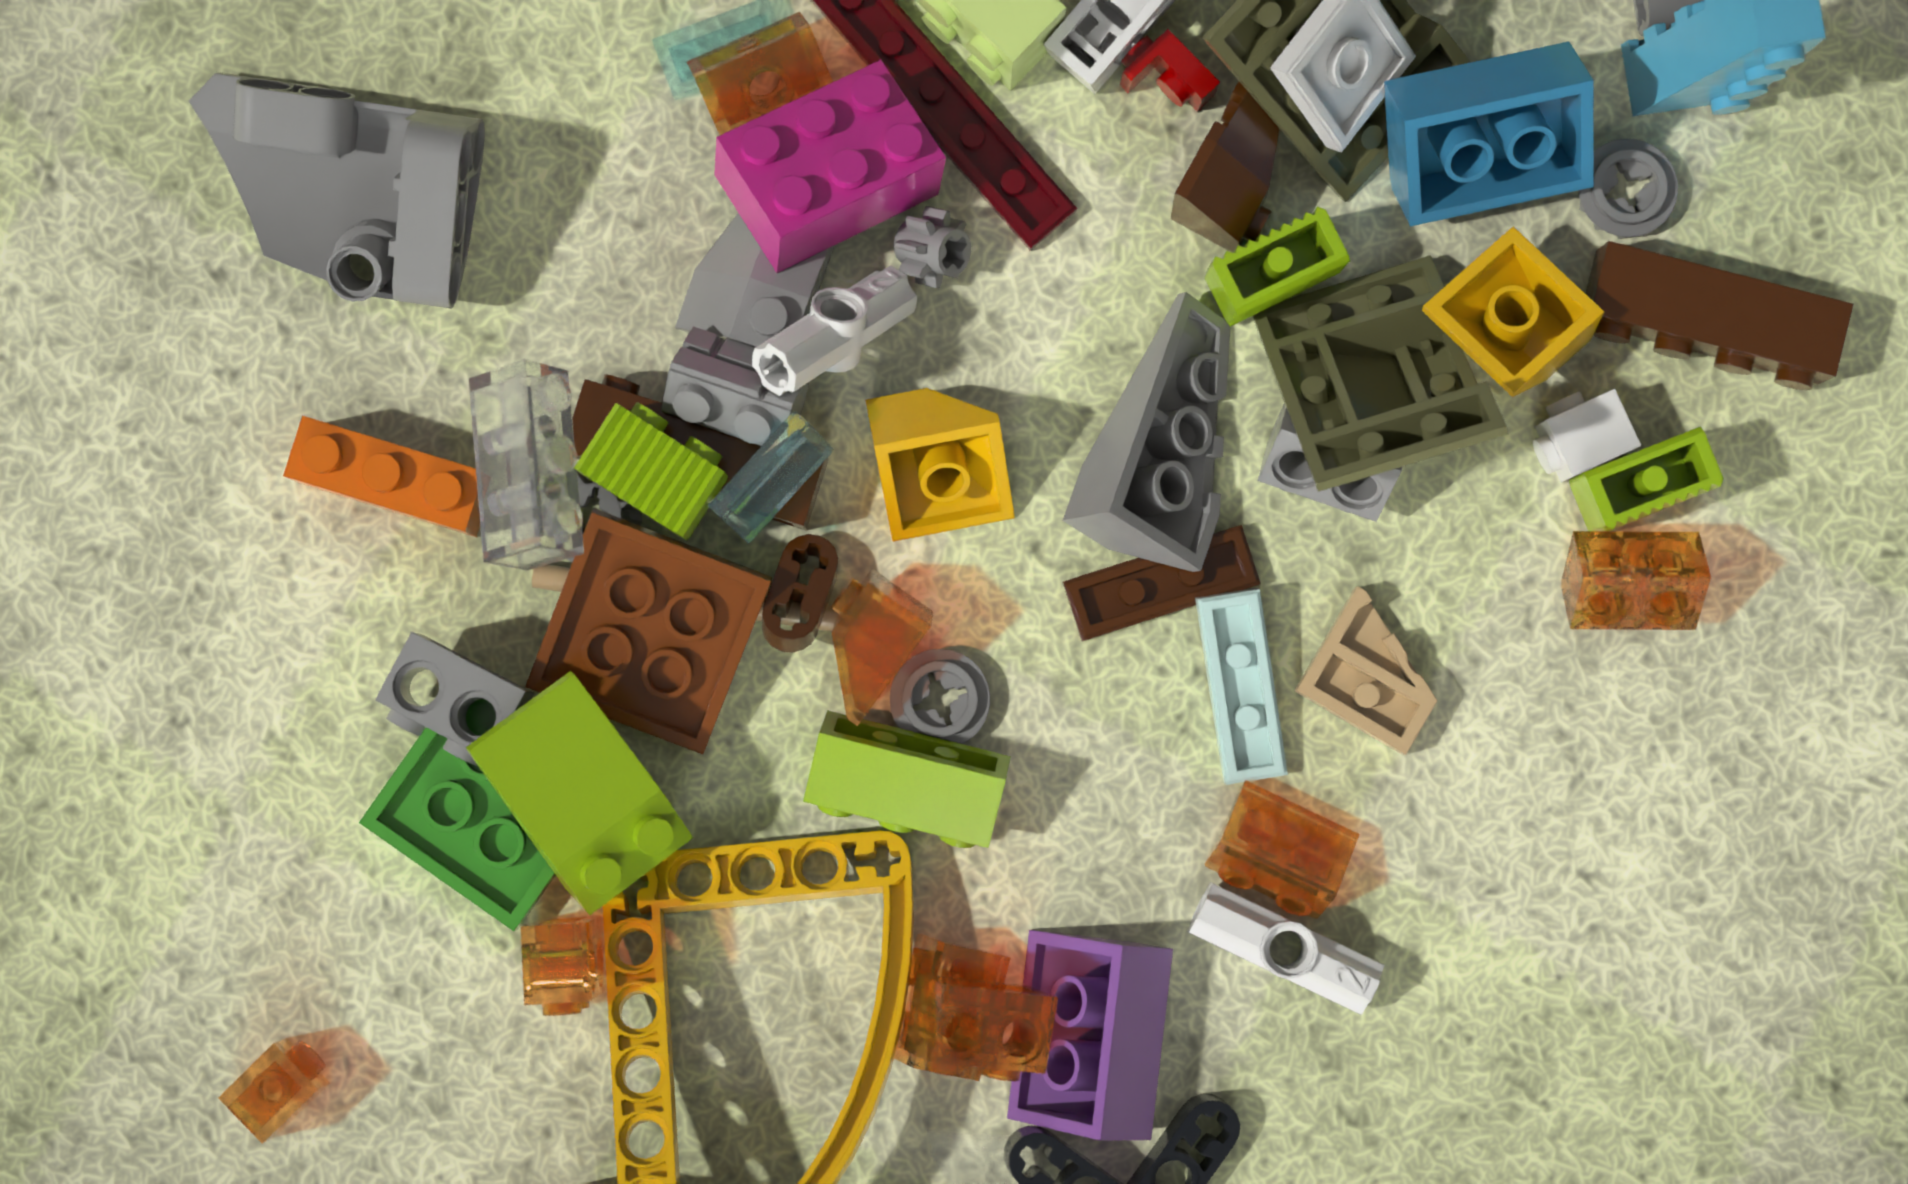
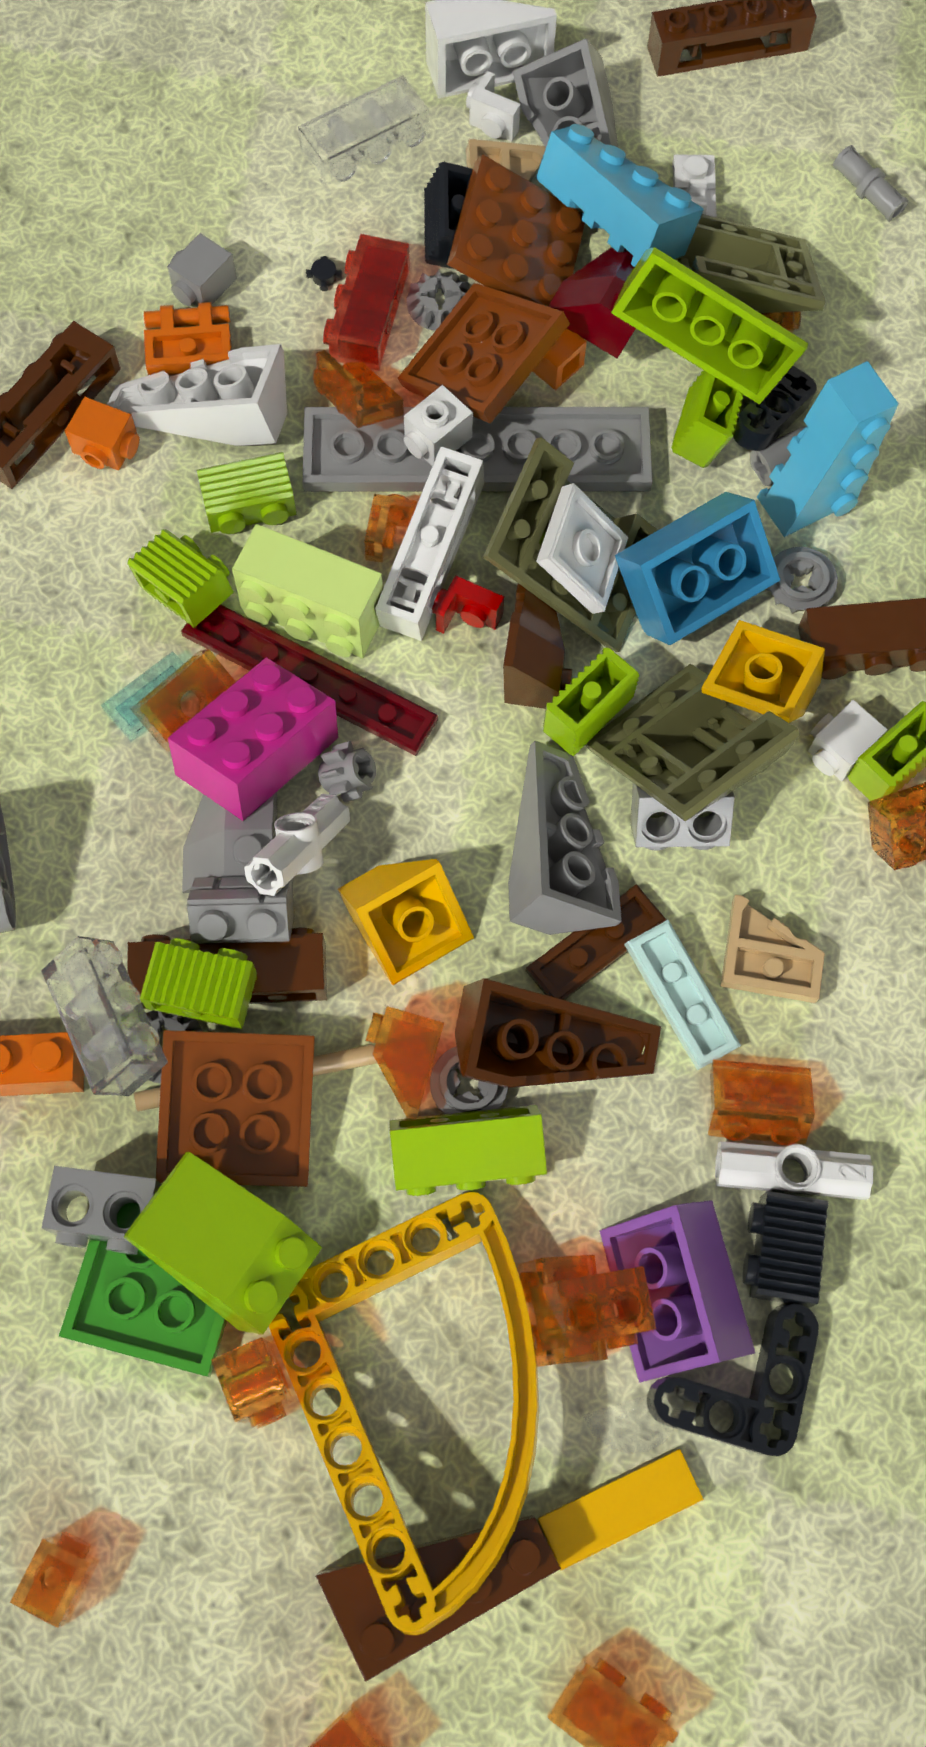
camera: 20 degrees left, 15 degrees down
(771, 477) = (288, 958): clear light blue tile -> none
(786, 588) = (347, 1041): reddish brown beam -> none
(1037, 682) = (537, 1039): none -> reddish brown wedge
(1238, 1035) = (786, 1249): none -> black brick

